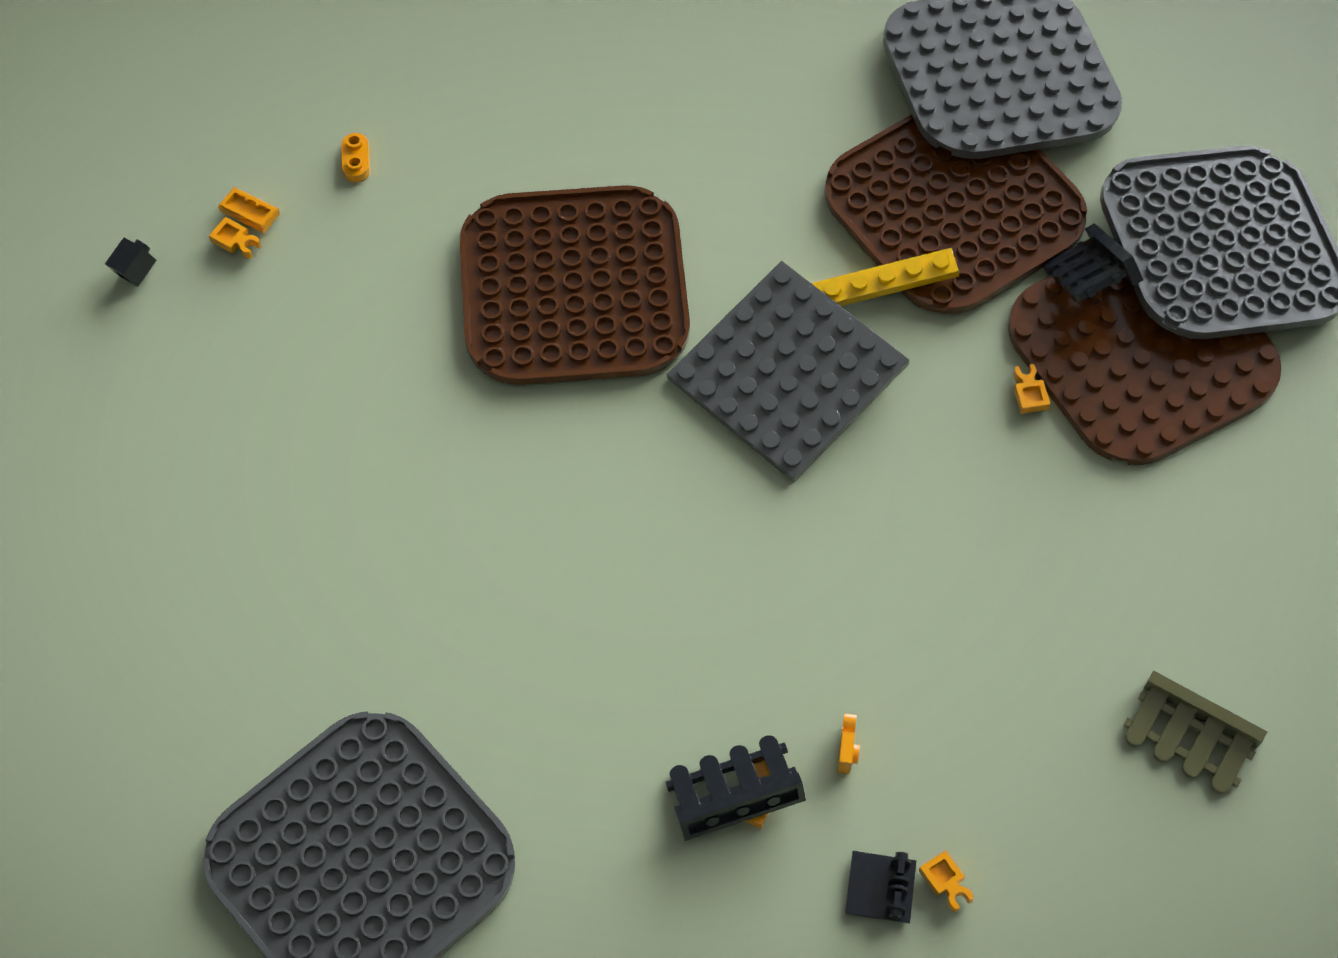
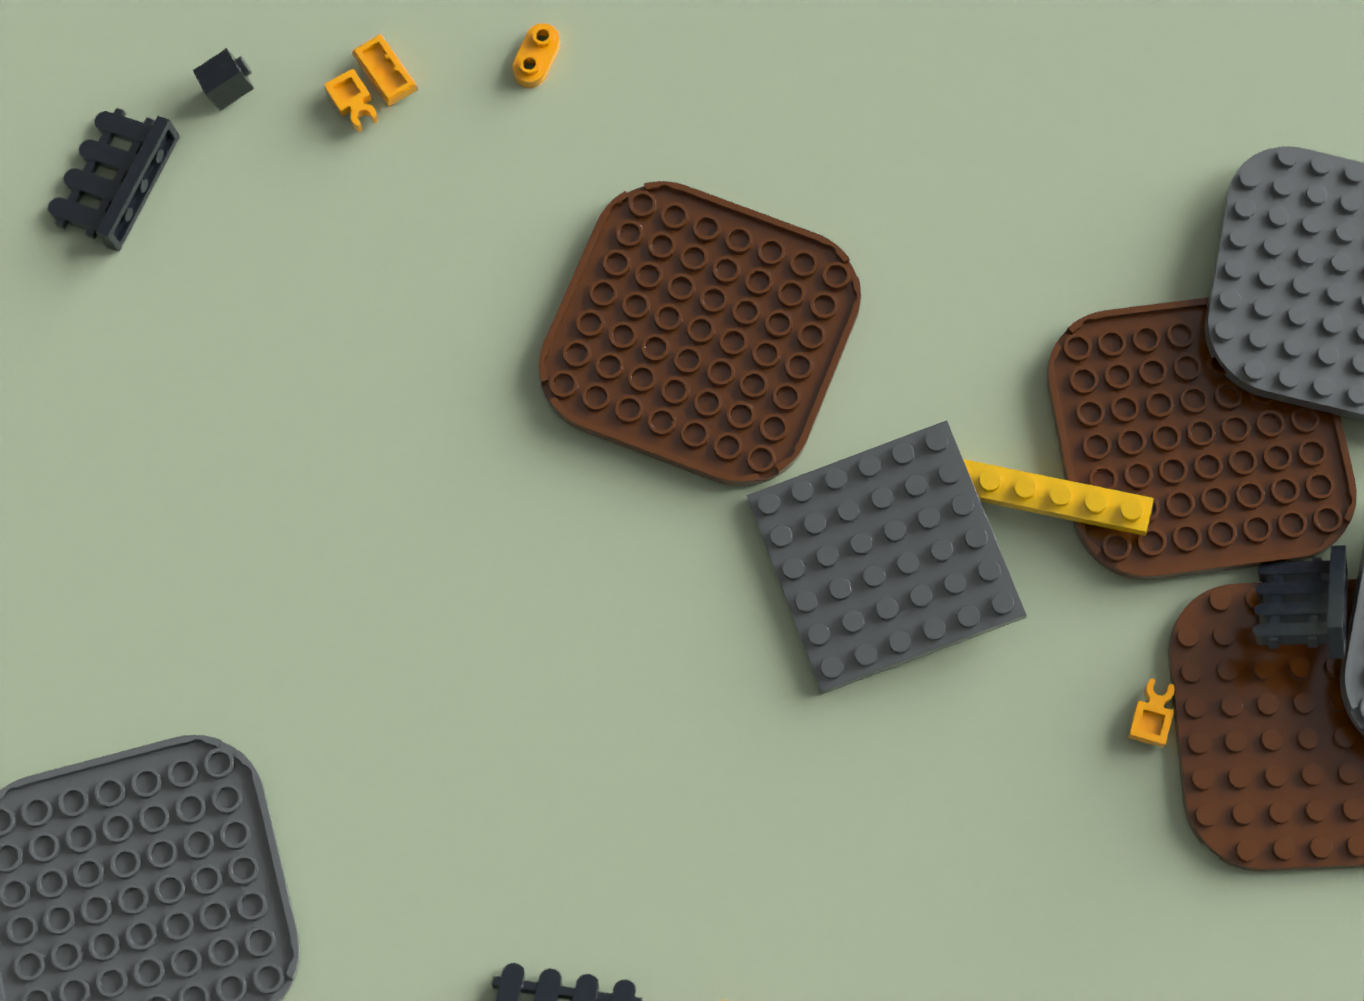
camera: 25 degrees right, 10 degrees up
(95, 364) = (129, 190): none -> black fence

